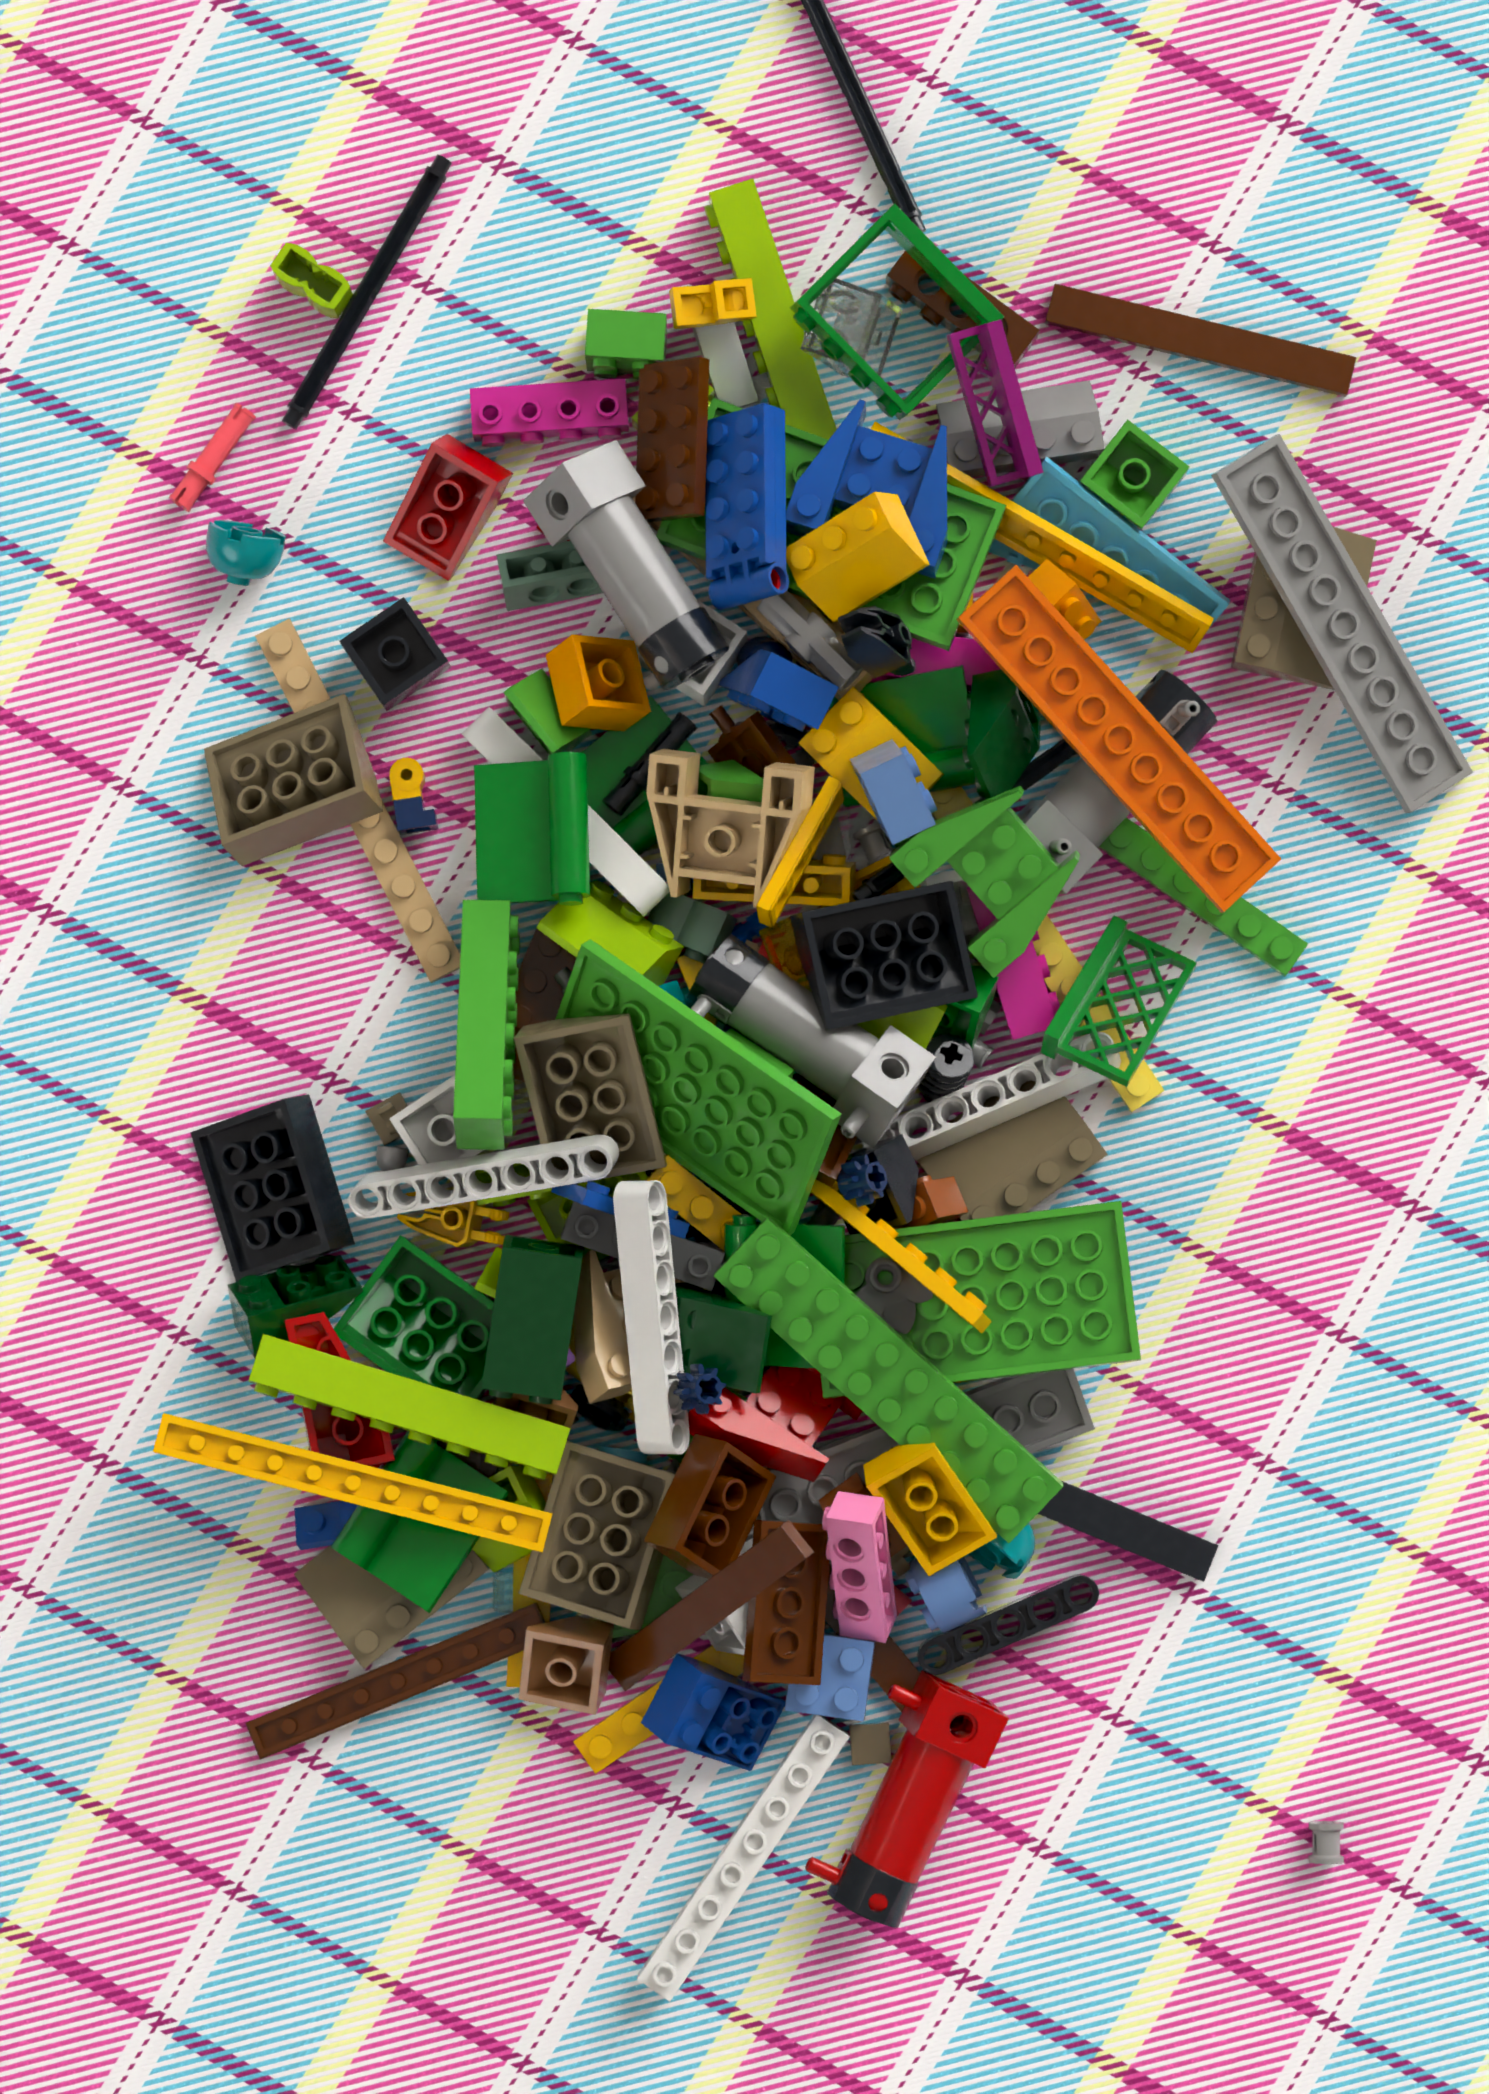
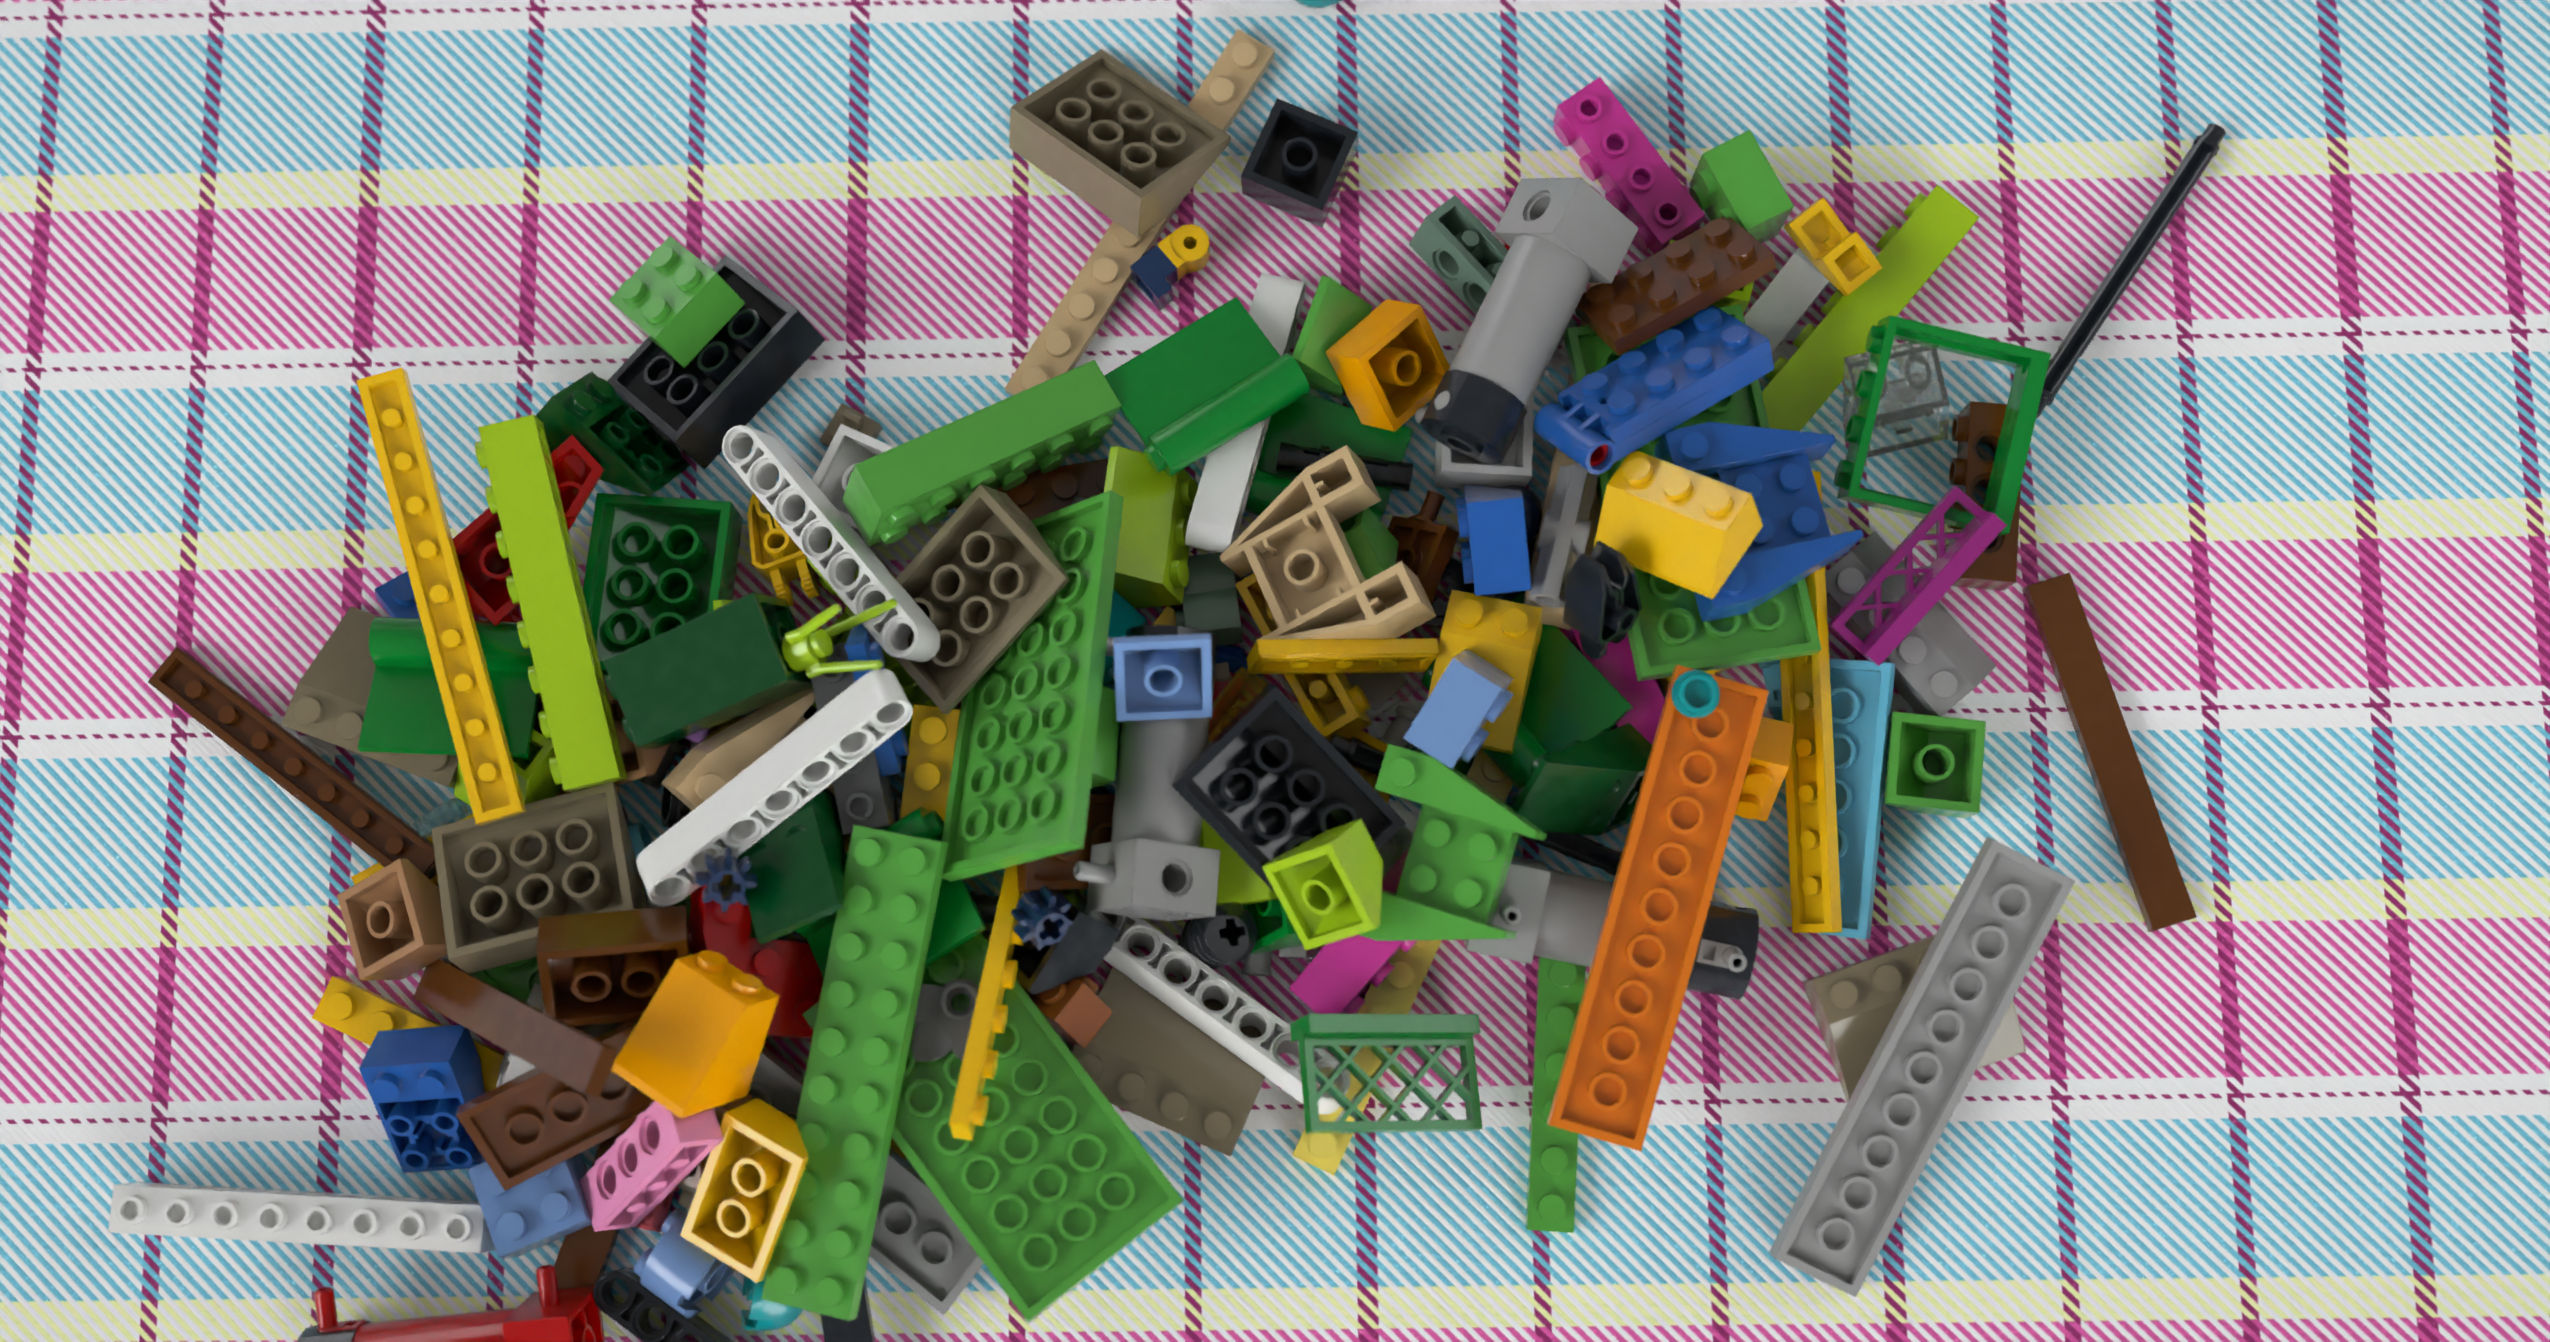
camera: 65 degrees right, 5 degrees down
(214, 1187) = (677, 301): none -> bright green brick
(391, 1157) = (809, 453): light grey hinge -> none
(447, 505) = (1475, 128): red slope -> none
(564, 1228) = (809, 648): none -> lime plant
(747, 989) = (1163, 677): none -> medium blue slope
(800, 1468) = (699, 1035): none -> light orange slope
(870, 1743) = (496, 1279): dark tan tile -> none
(965, 960) = (1330, 885): none -> lime slope
(987, 618) = (1695, 694): none -> teal plate

